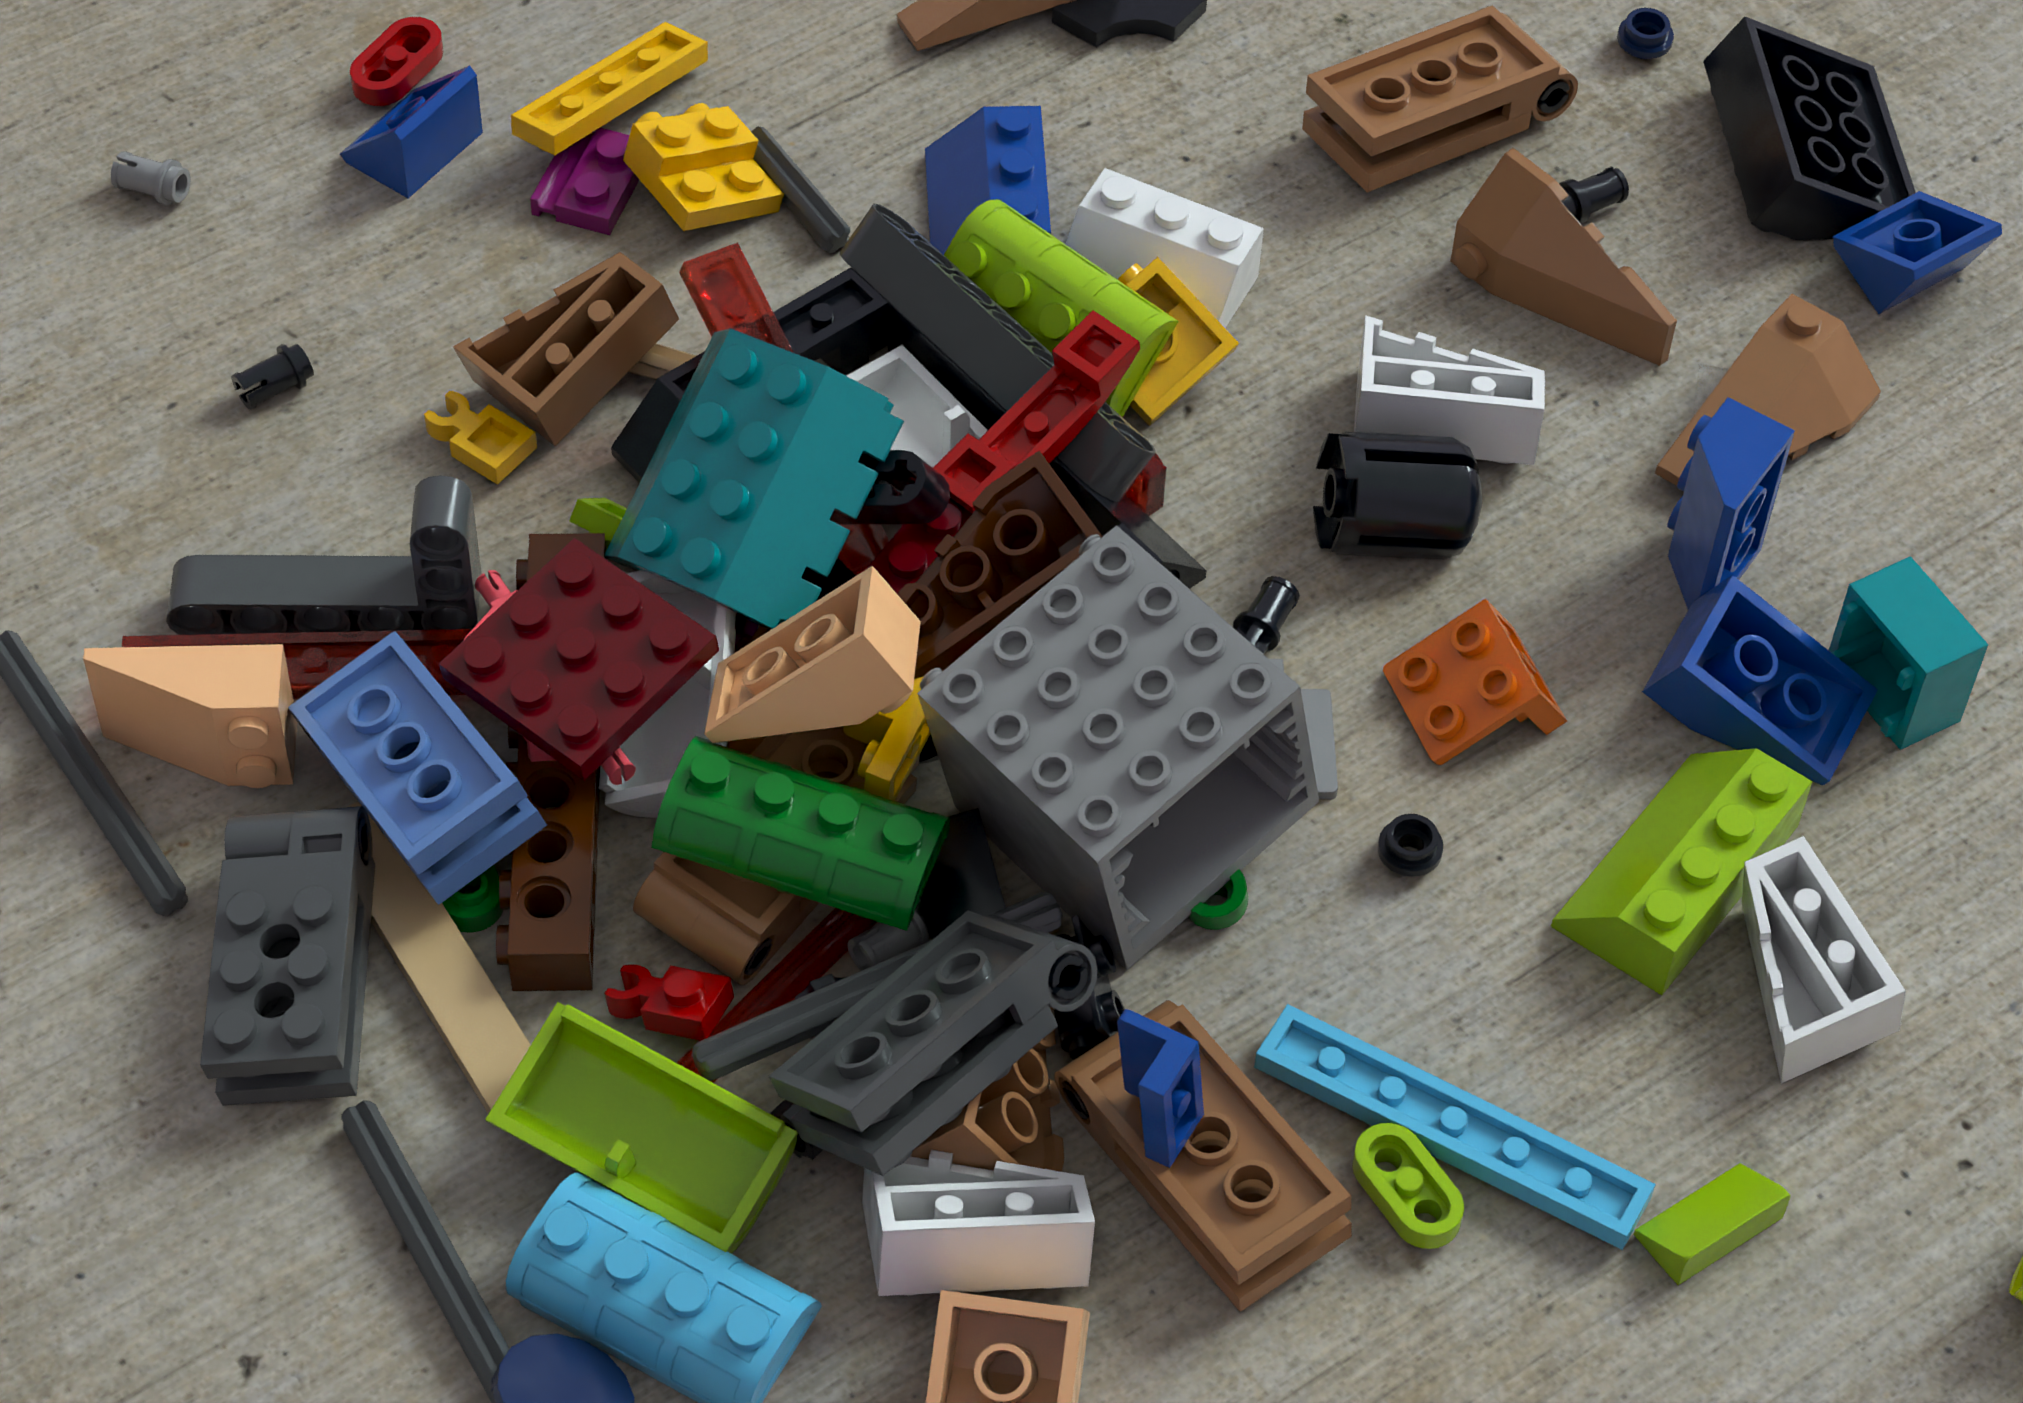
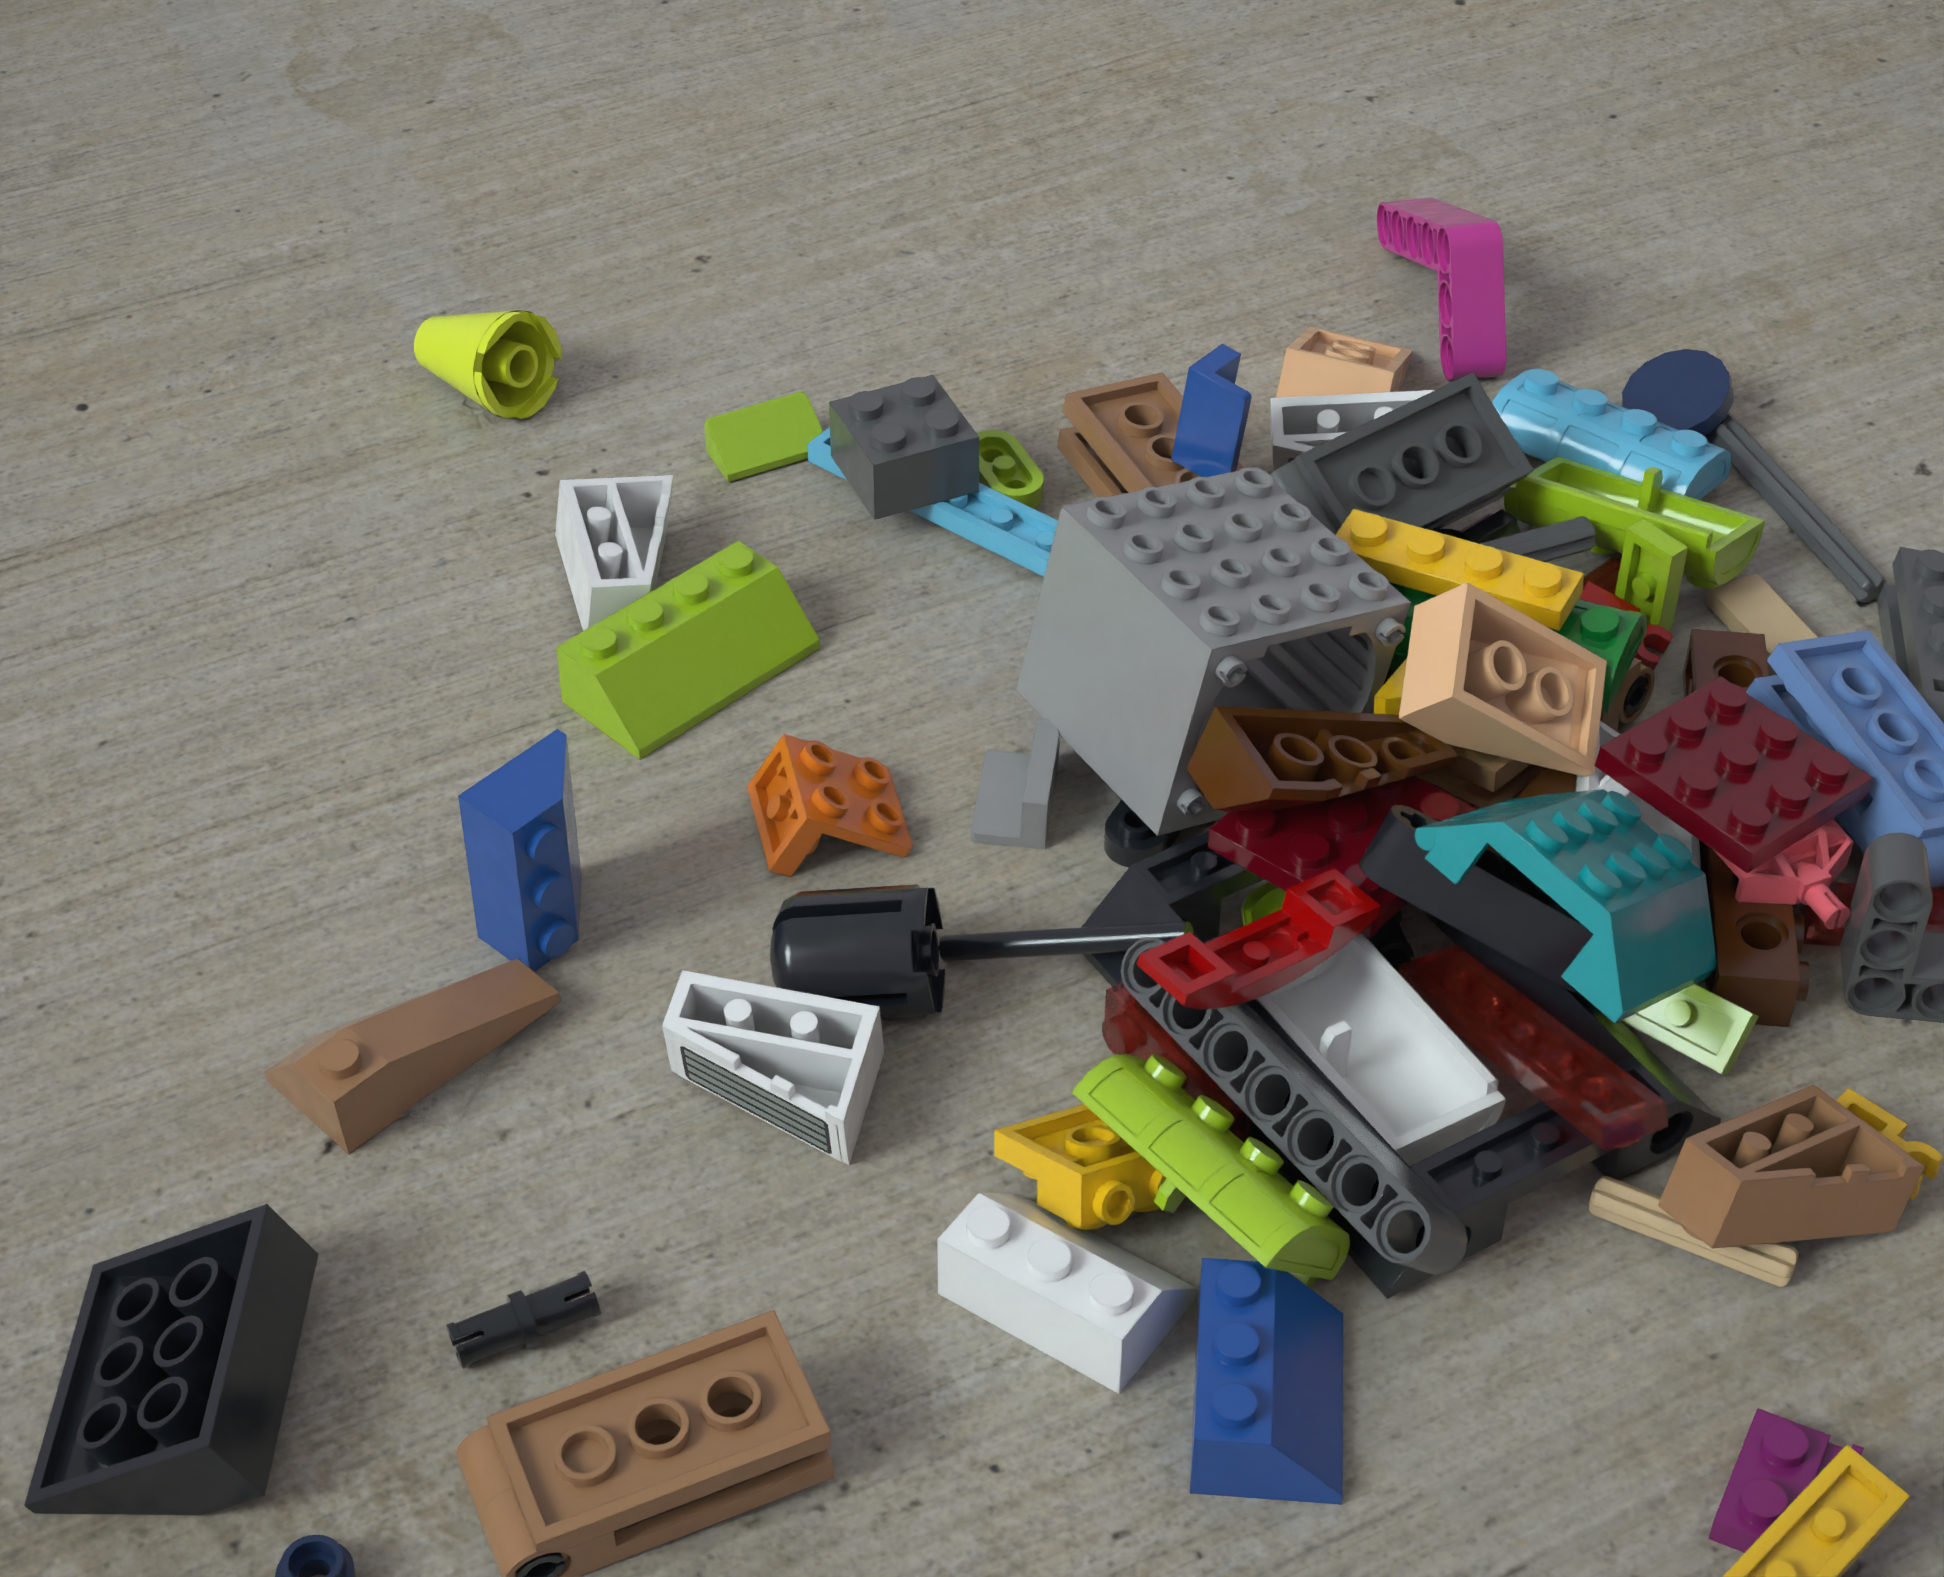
camera: 170 degrees left, 10 degrees down
(631, 1003) = (1651, 572): none -> lime plate
(701, 166) = (1642, 1450): yellow plate -> none
(800, 194) = (1518, 1445): dark grey axle -> none
(867, 817) = (1443, 562): none -> yellow plate
(1212, 523) = (1055, 941): none -> black bar
(1267, 613) = (1032, 881): black axle -> none
(1414, 832) = (931, 693): black plate -> none
(1530, 1122) = (904, 446): none -> dark grey brick
(1539, 256) = (595, 1217): medium nougat wedge -> none
(1760, 683) = (609, 768): blue slope -> none
(1911, 648) = (407, 753): teal container -> none
(1912, 247) = (137, 1177): blue slope -> none

